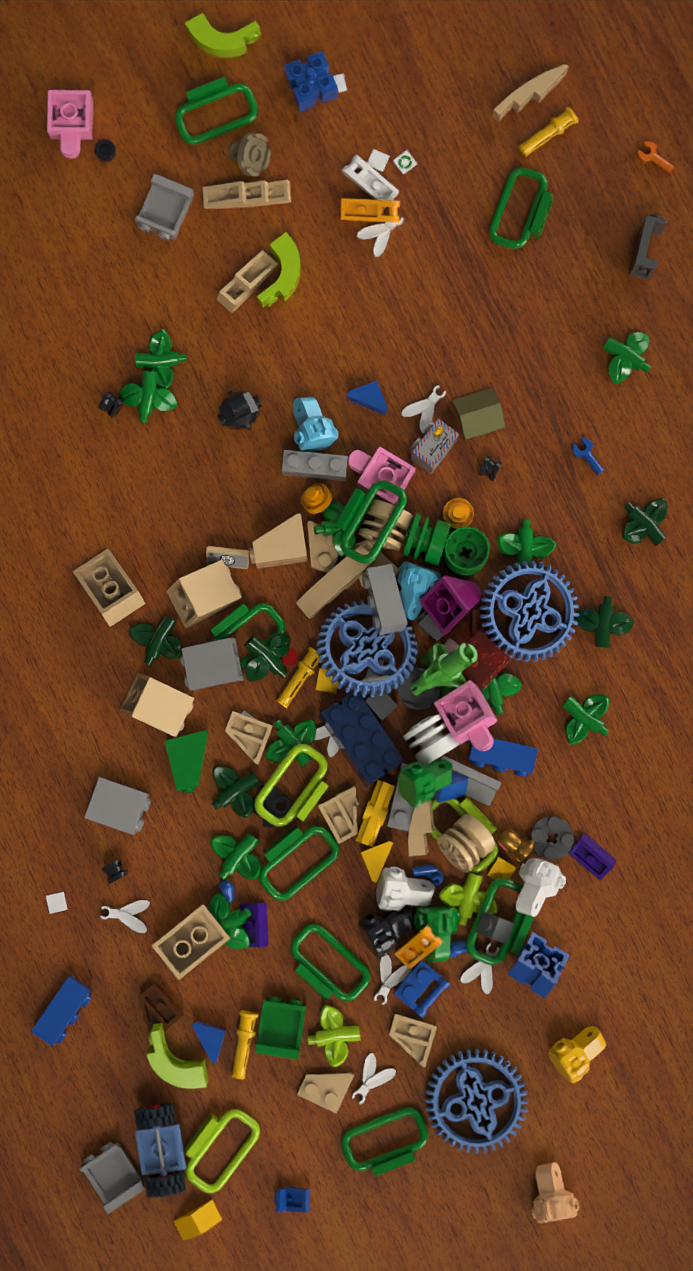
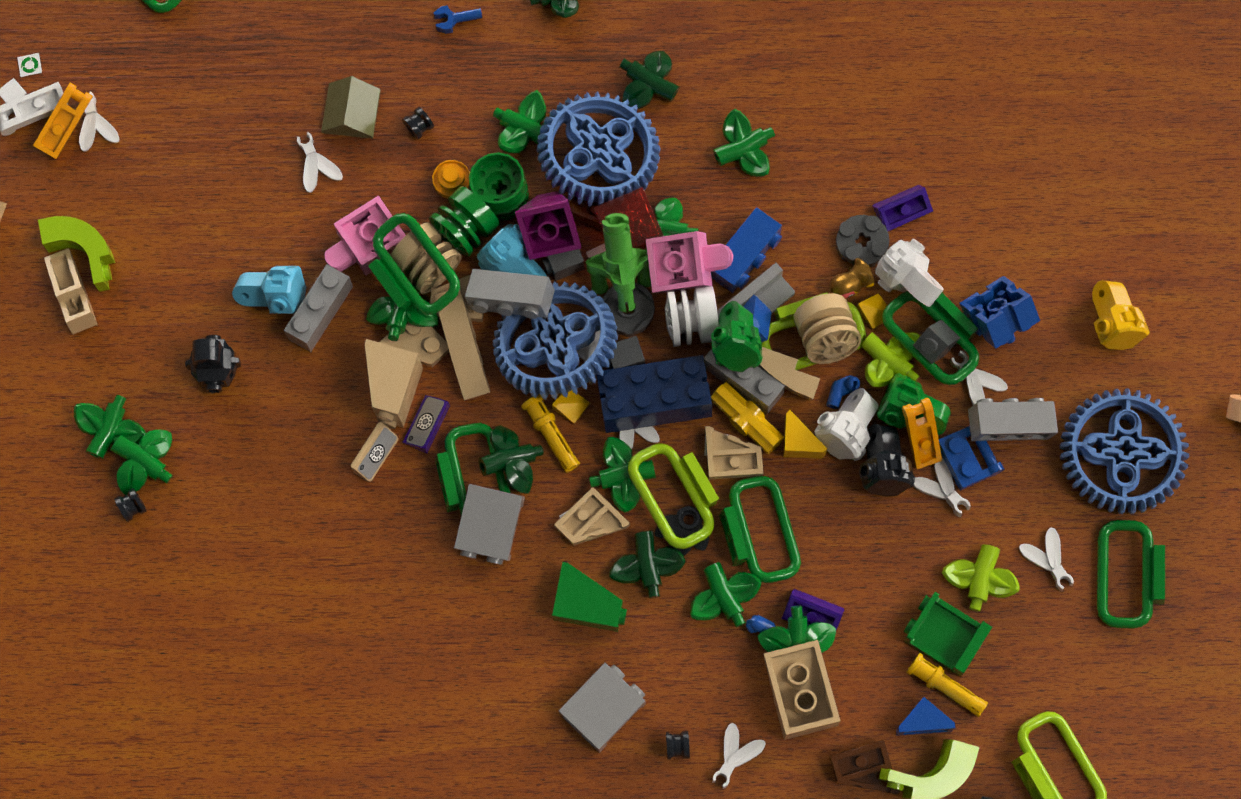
camera: 60 degrees left, 10 degrees down
(109, 587) = (342, 602): tan slope -> none
(157, 639) = (430, 574): dark green plant -> none
(157, 704) = (504, 607): tan slope -> none
(203, 593) = (402, 497): tan slope -> none
(266, 583) = (426, 423): none -> slope
(290, 658) = (525, 435): red sticker -> none
(292, 1199) = (1153, 708): blue bracket -> none
(315, 978) = (906, 569): green bar -> none
(316, 498) = (356, 323): light orange plate -> none
(325, 1089) = (1039, 615): tan wing -> none
(369, 397) = (273, 215): blue slope -> none
(413, 1036) = (1021, 489): tan wing -> none
(434, 446) = (362, 167): light grey brick -> none
(459, 947) = (941, 392): blue arm -> none
(461, 1008) = (1012, 420): none -> light grey brick

